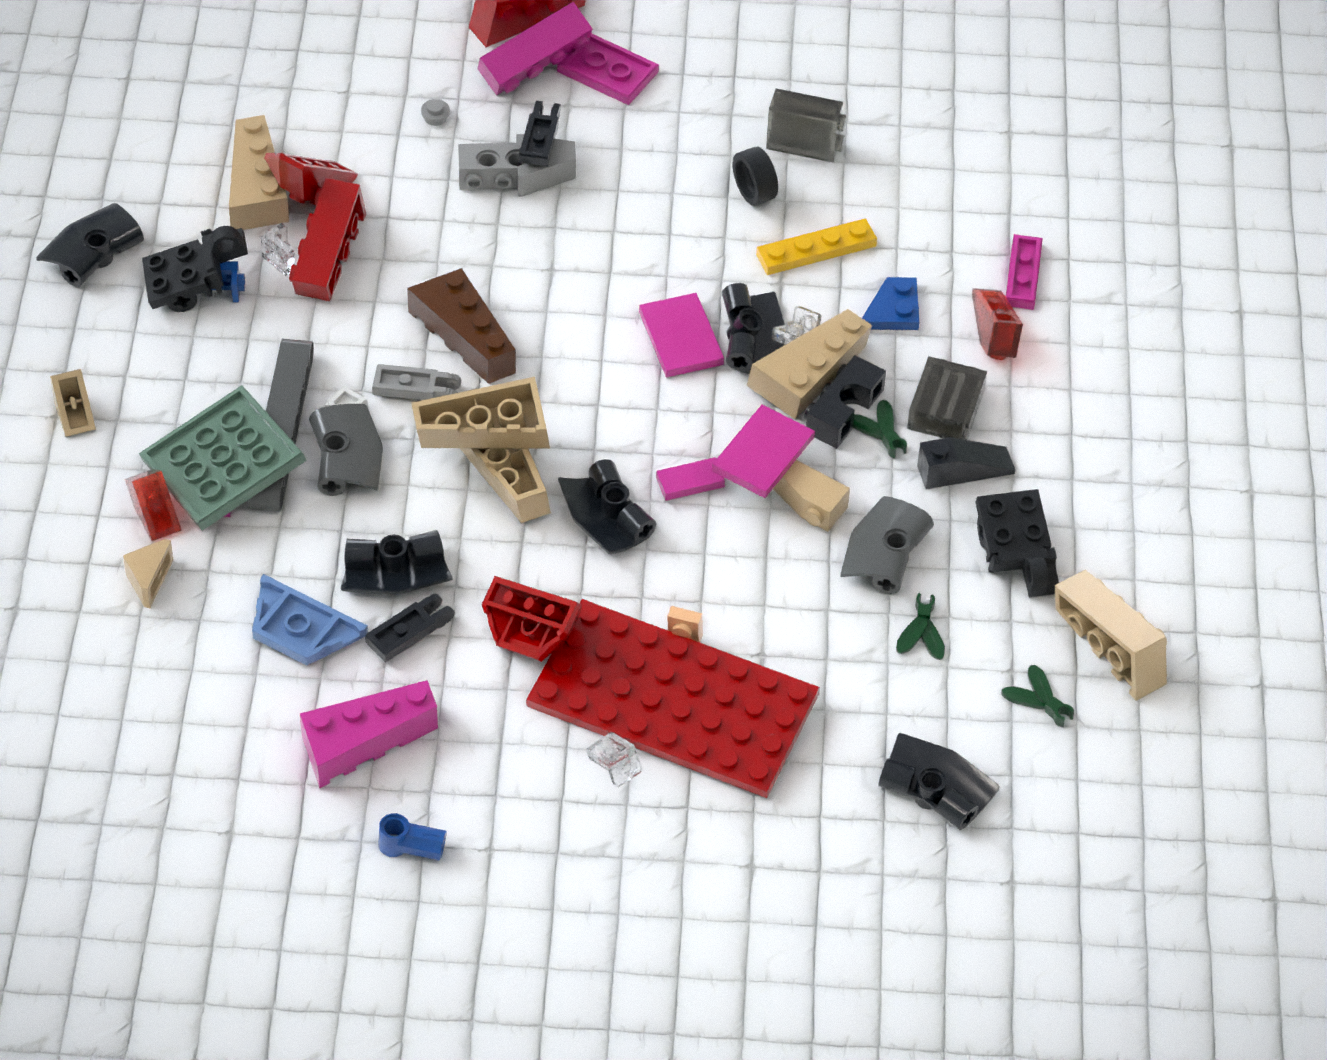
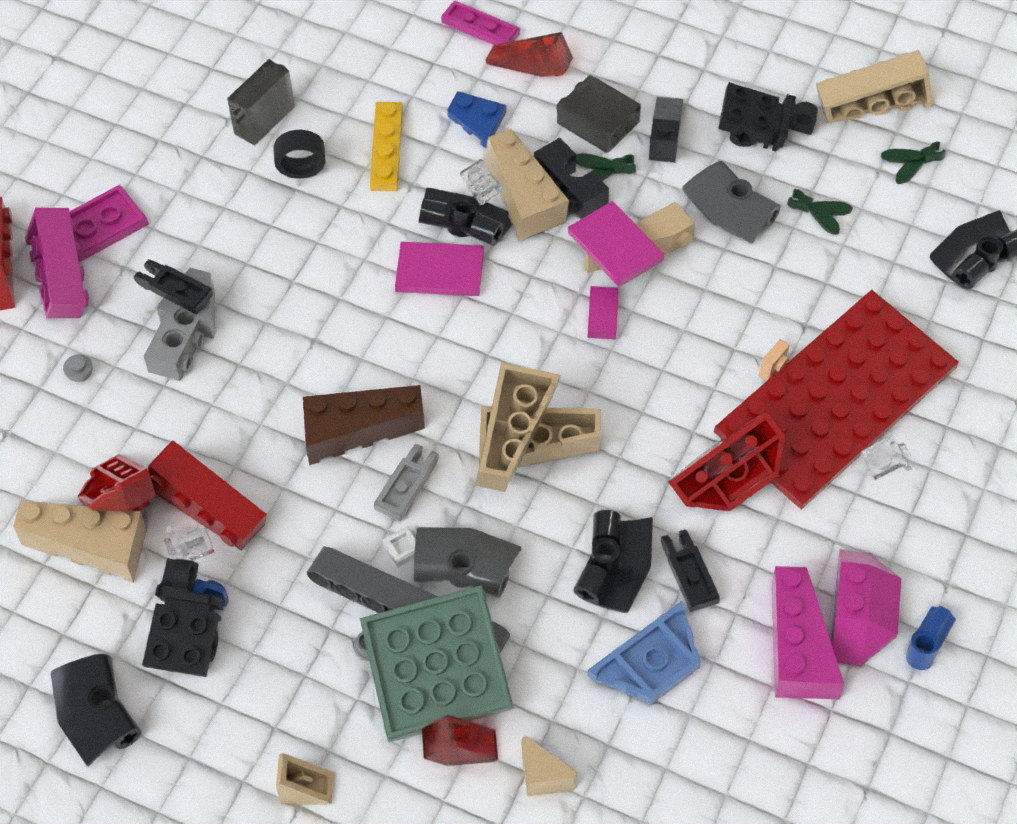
camera: 65 degrees left, 5 degrees up
(427, 772) = (863, 607): none -> dark pink wedge
(604, 508) = (634, 382): black panel -> none

